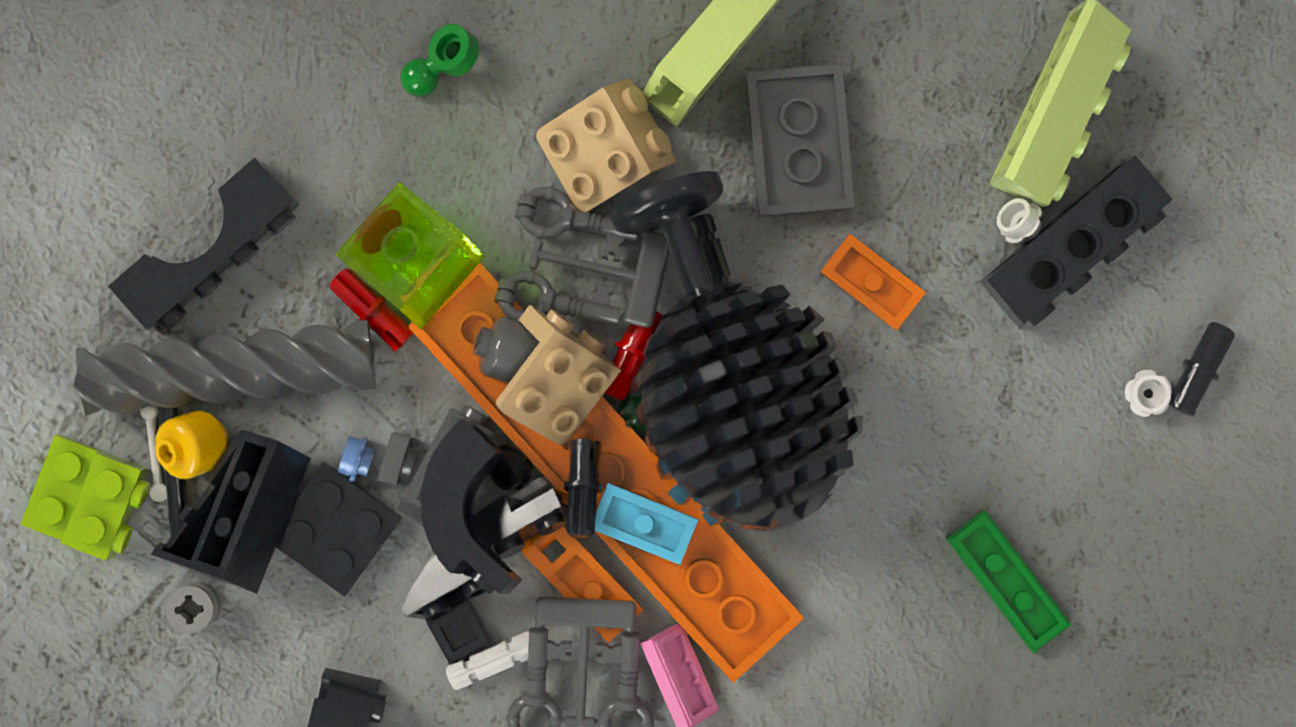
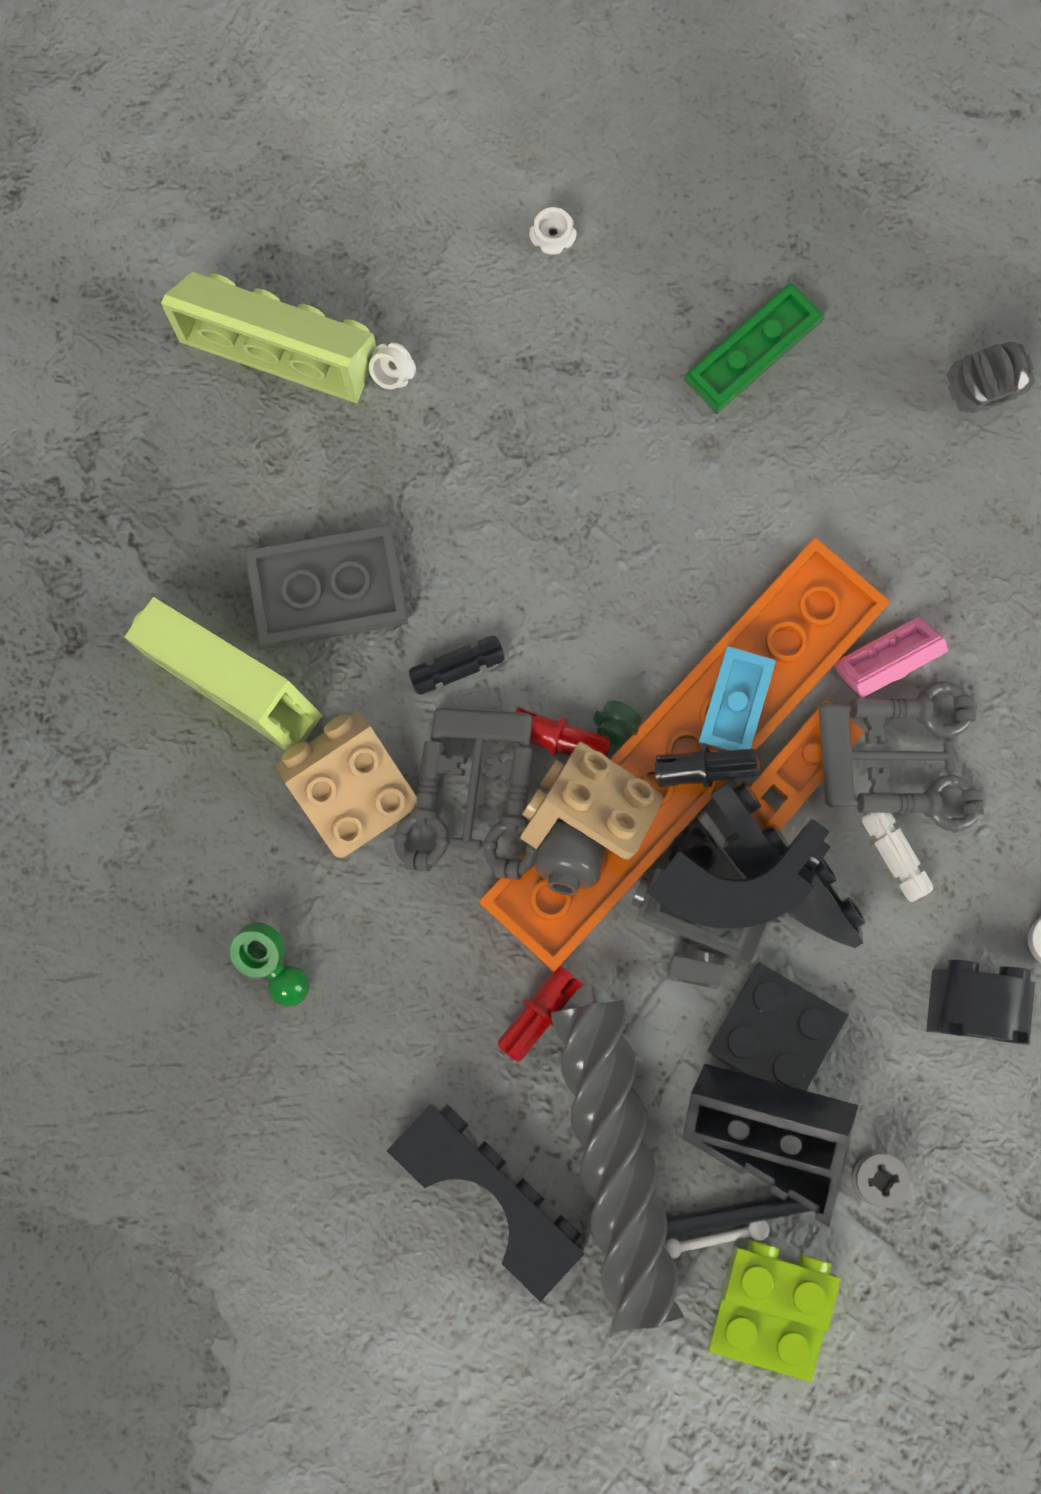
camera: 85 degrees left, 10 degrees down
(191, 444) = (701, 1191): yellow head -> none
(356, 458) = (699, 1016): medium blue plate -> none
(410, 255) = (477, 972): clear neon green brick -> none
(460, 631) = (871, 889): black tile -> none
(737, 382) = (582, 612): black plant -> none
(872, 282) = (465, 503): orange plate -> none
(1126, 184) = (451, 367): black brick -> none
(1201, 368) = (523, 183): black axle -> none

